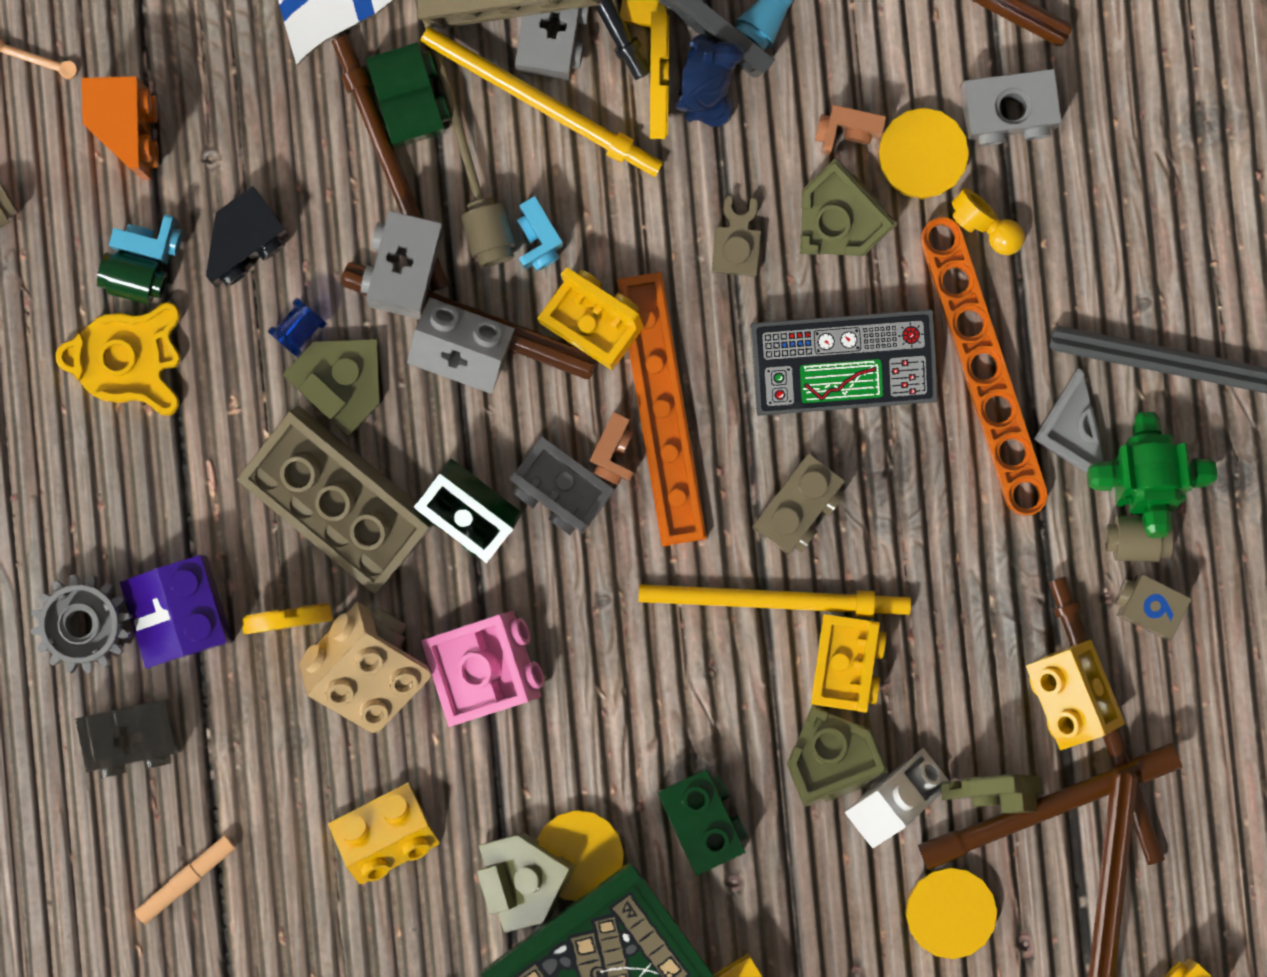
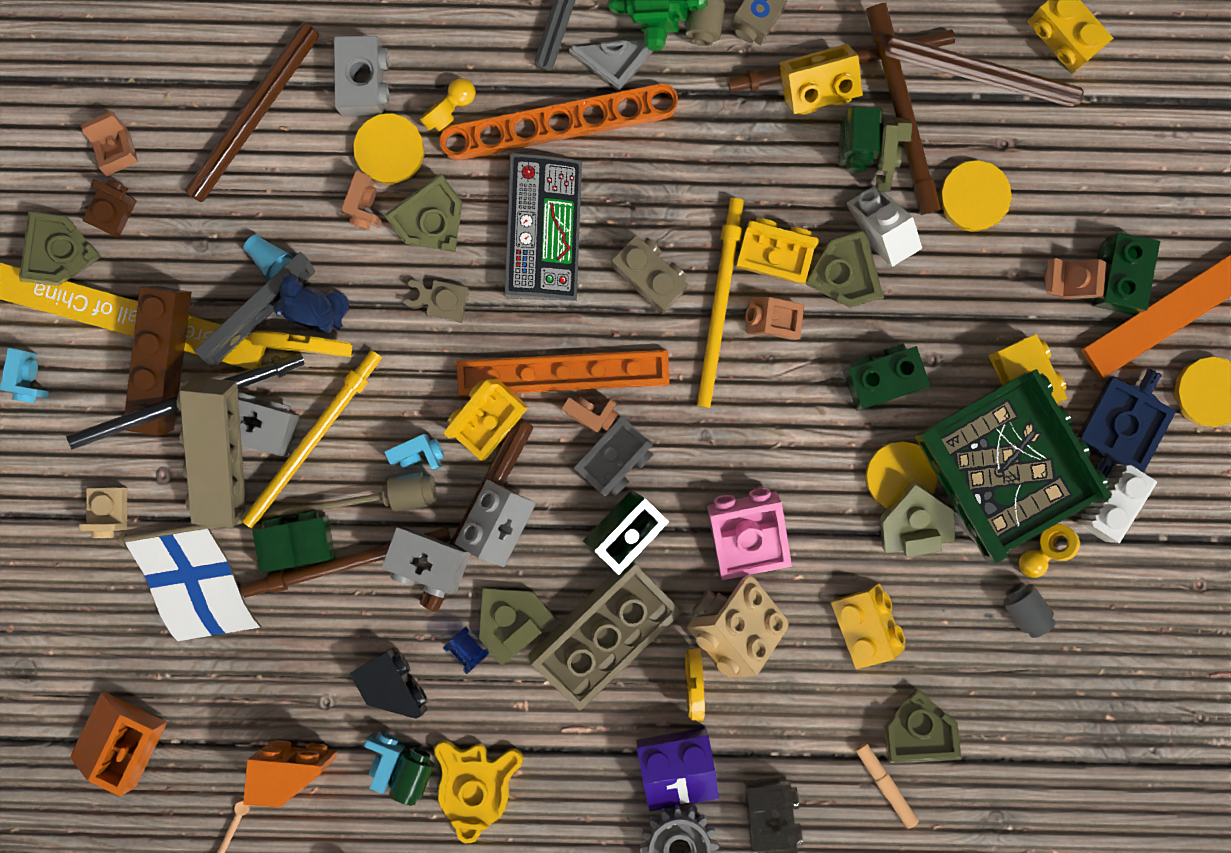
camera: 80 degrees left, 0 degrees up
(256, 914) = (921, 732): none -> olive plate
(762, 671) = (774, 318): none -> nougat bracket
(1001, 752) = (860, 138): none -> dark green brick

